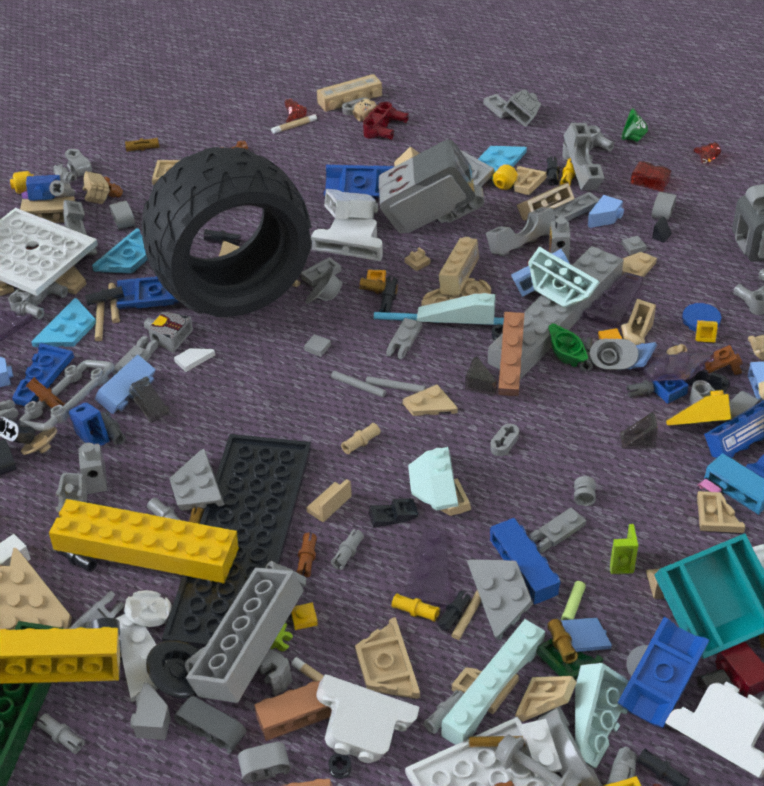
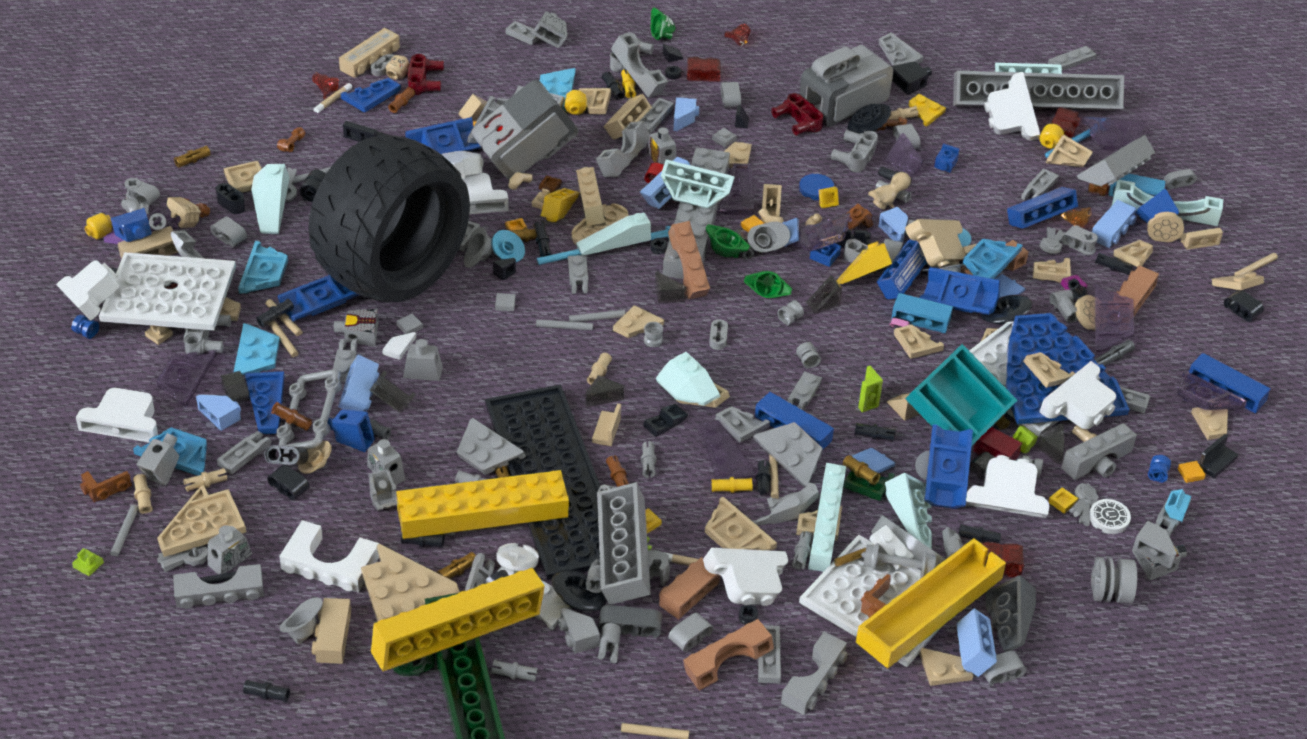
camera: 30 degrees left, 0 degrees up
(22, 353) = (235, 387): none -> clear smoke beam
(84, 598) = (458, 566): none -> pearl gold pin
(143, 185) = (230, 198): none -> black beam
(174, 739) = (609, 641): none -> light grey hinge
(196, 380) = (423, 362): none -> light grey torso
(216, 341) = (409, 324): none -> light grey tile
(295, 159) = (358, 132): none -> black panel
(323, 130) = (371, 96): none -> blue wing
(336, 312) = (504, 268): none -> black slope
(346, 463) = (603, 392): none -> clear smoke slope
(349, 139) = (401, 100): none -> dark orange pin
(356, 287) = (507, 245): none -> medium azure dish
(405, 233) = (518, 178): none -> tan arm
(424, 266) = (558, 204): none -> yellow slope
(434, 246) = (550, 183): none -> reddish brown tile
(435, 419) = (653, 334): none -> light grey wheel
(459, 654) = (789, 506): none -> light grey animal
(468, 543) = (741, 424): none -> light grey wing
(544, 695) = (870, 512): tan wing -> none
(573, 601) = (847, 440): yellowish green piece -> none
(585, 402) = (768, 284): none -> green hat
(593, 439) = (791, 312): none -> light grey wheel
(609, 601) = (875, 431): none -> black pin
(620, 172) = (673, 72): none -> black tile
(629, 155) = (671, 53): none -> black slope
(645, 387) = (801, 261): dark grey pin -> none
(729, 240) = (804, 112): none -> dark red piece

